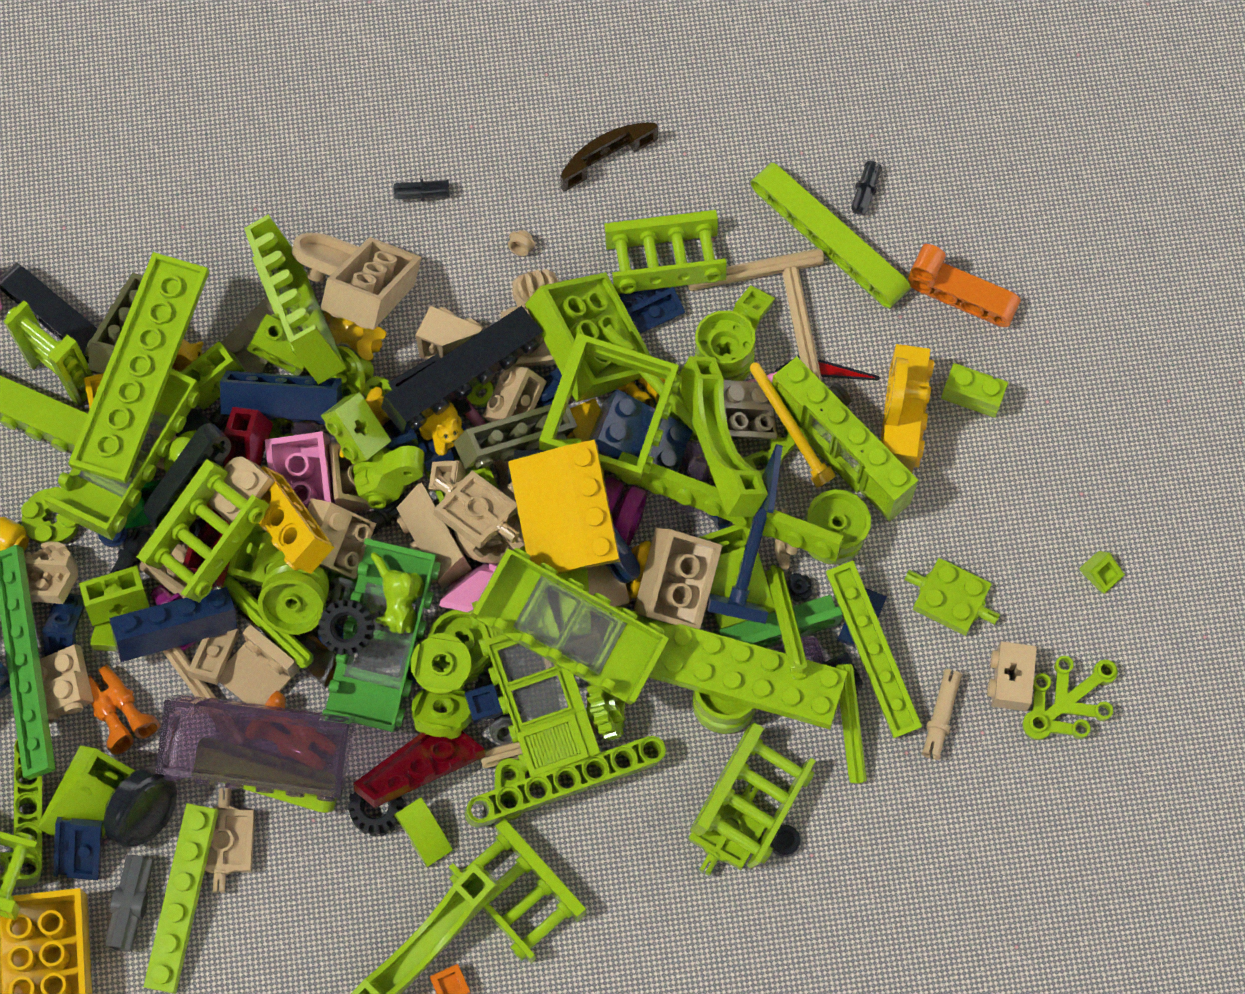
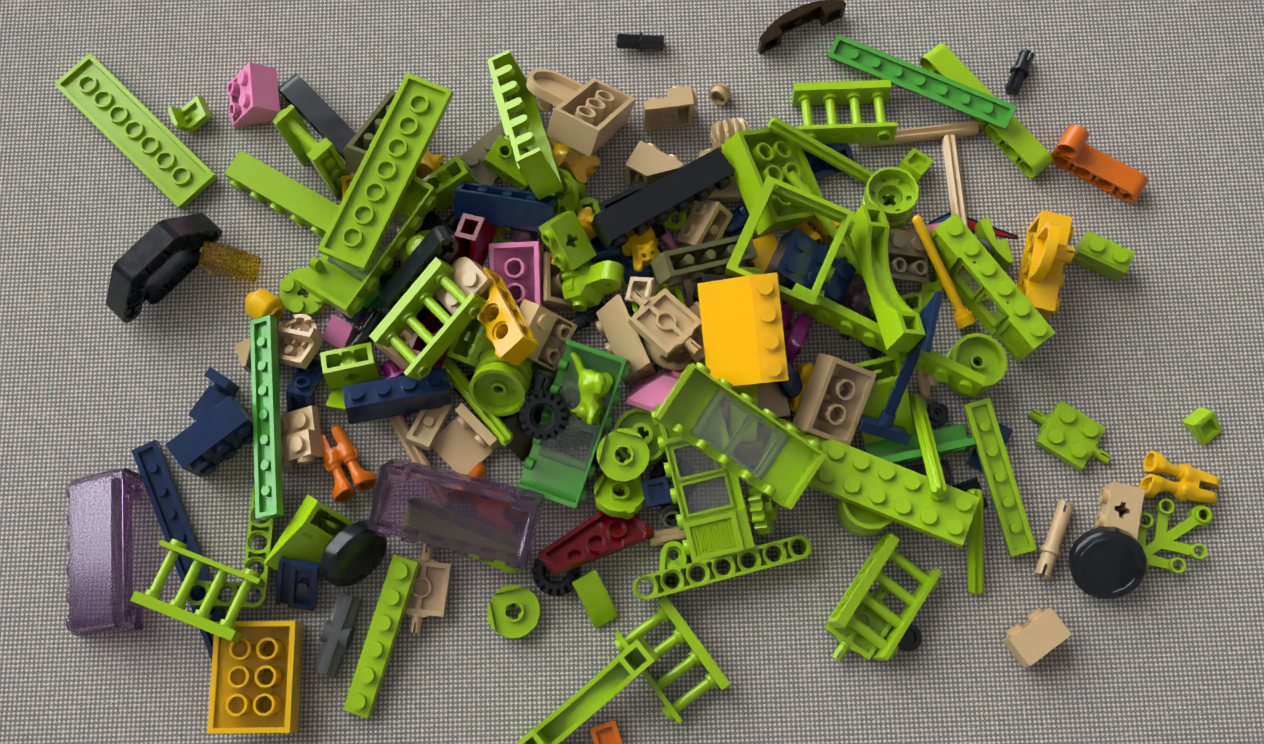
camera: 10 degrees right, 5 degrees up
(96, 559) = (339, 332): none -> bright pink slope
(316, 849) = (502, 602): none -> lime plate
(467, 268) = (673, 111): none -> tan plate
(638, 297) = (819, 149): none -> lime axle
(752, 209) = (922, 82): none -> bright green plate
(859, 397) = (1001, 248): none -> lime slope
(927, 822) = (1036, 636): none -> tan brick
(1000, 732) = (1107, 562): none -> black piece
(1086, 640) = (1189, 480): none -> yellow piece

